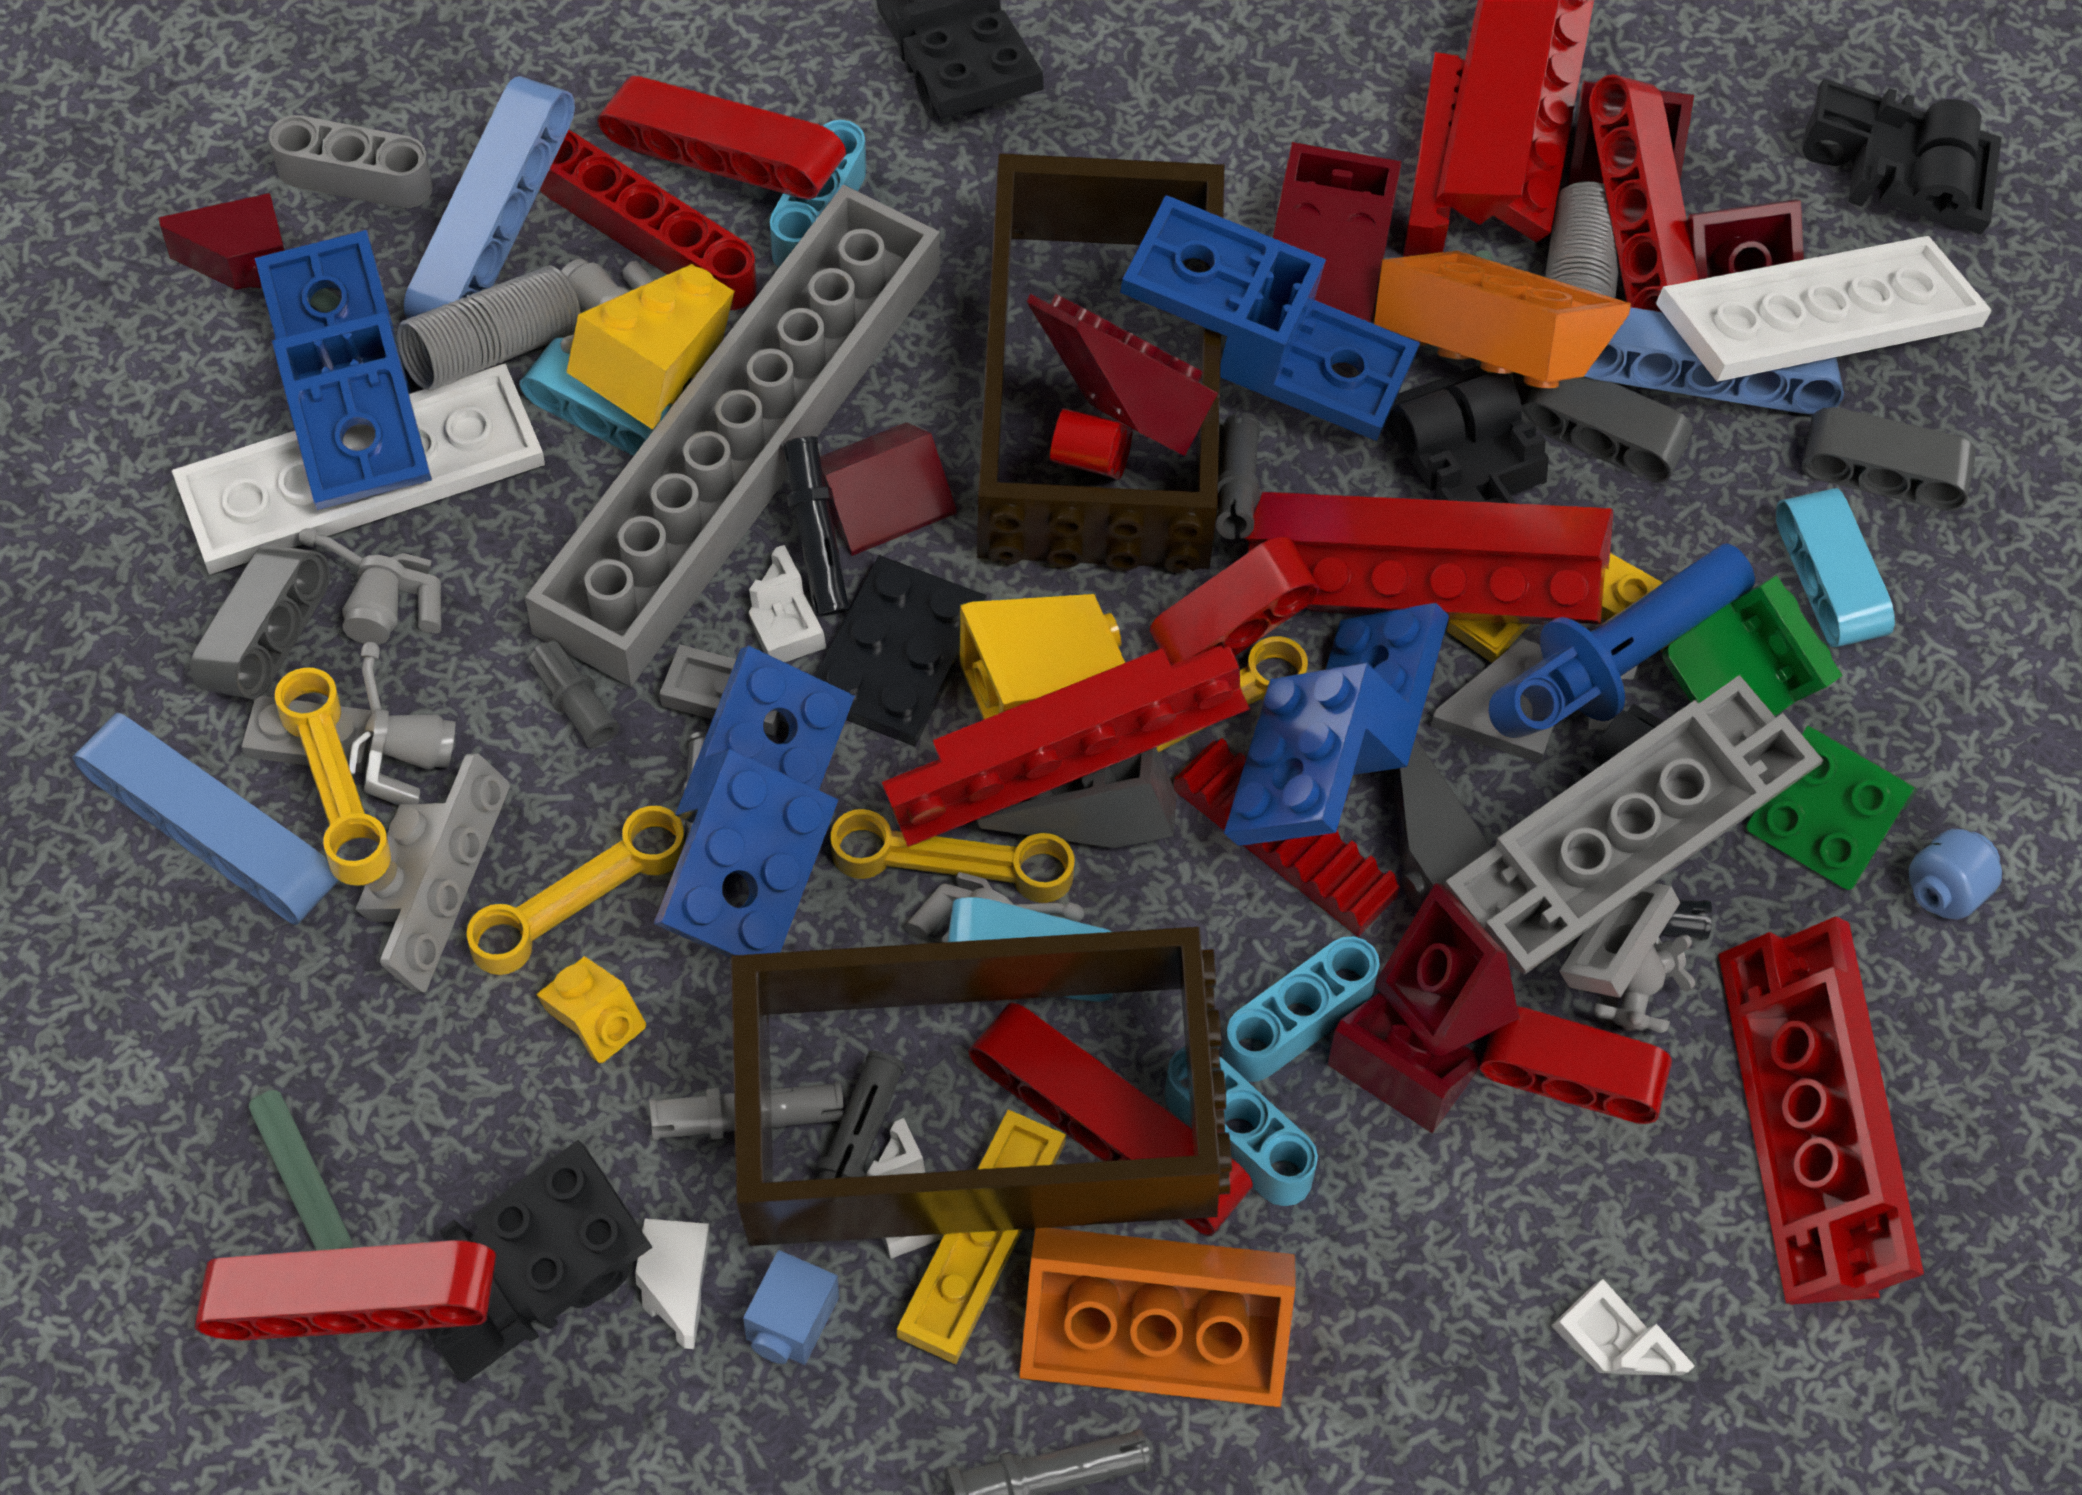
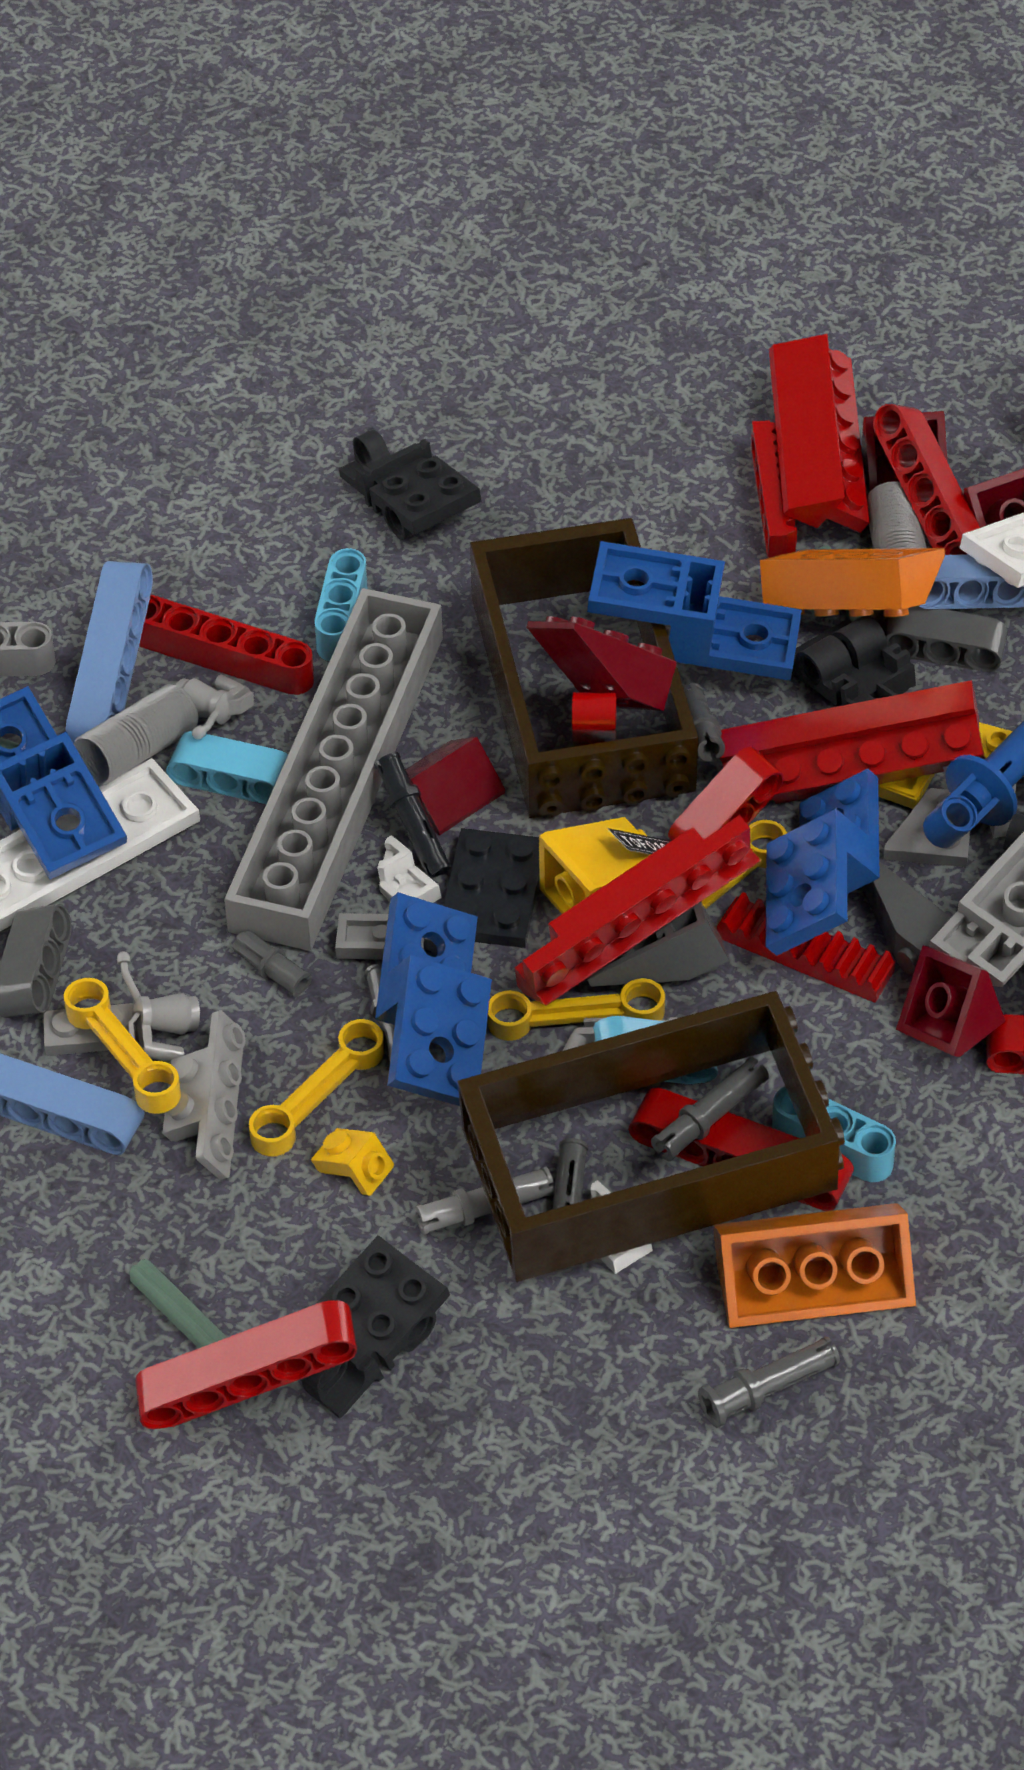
camera: 10 degrees left, 10 degrees down
(373, 604) = (108, 927): light grey piece -> none
(651, 341) = (257, 717): yellow wedge -> none
(674, 1274) = (469, 1315): white slope -> none
(722, 137) = (261, 576): red beam -> none
(790, 1309) = (558, 1315): medium blue brick -> none
(972, 1262) = (670, 1270): yellow plate -> none
(1052, 1073) = (696, 1120): none -> dark grey pin
(1104, 642) = (639, 842): none -> black sticker
(1310, 984) = (856, 1046): medium azure beam -> none
(1342, 212) = (723, 531): dark red slope -> none
(1395, 1066) = (930, 1074): dark red slope -> none

